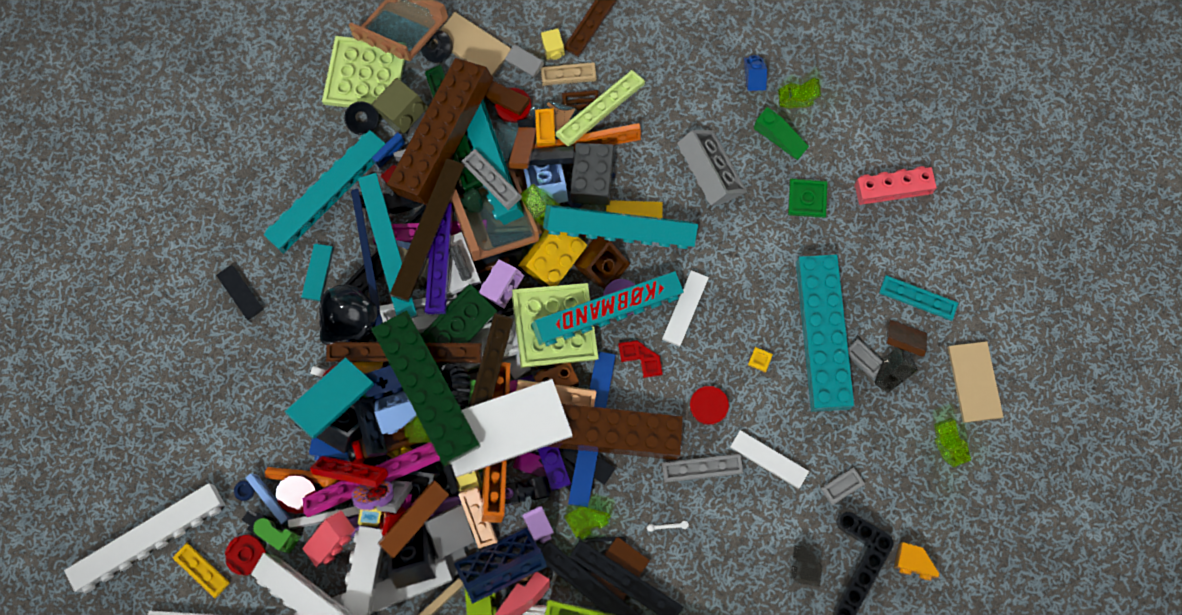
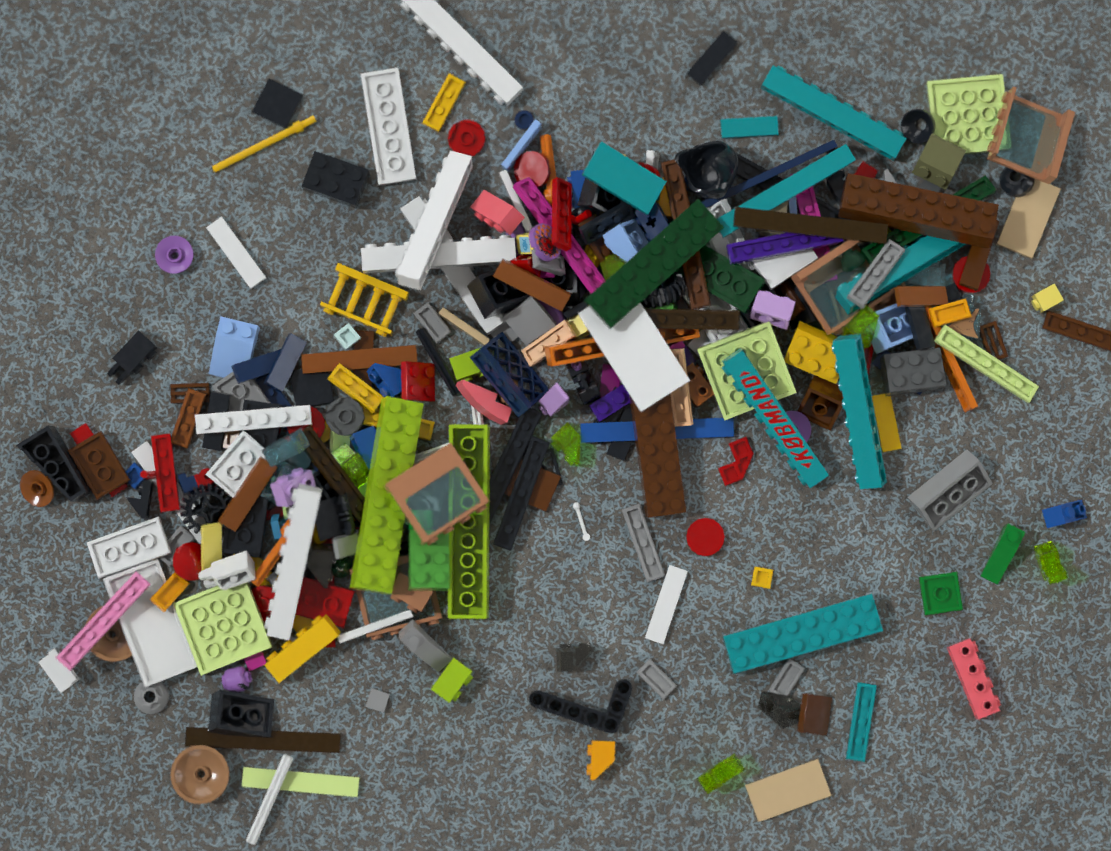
camera: 75 degrees right, 10 degrees up
(271, 531) = (492, 156): bright green hips -> none
(388, 150) = (891, 162): blue tile -> none
(460, 263) = (784, 265): dark grey axle -> none
(524, 61) = (1021, 274): light grey tile -> none
(568, 74) = (1019, 322): tan tile -> none
(685, 308) = (796, 494): white tile -> none

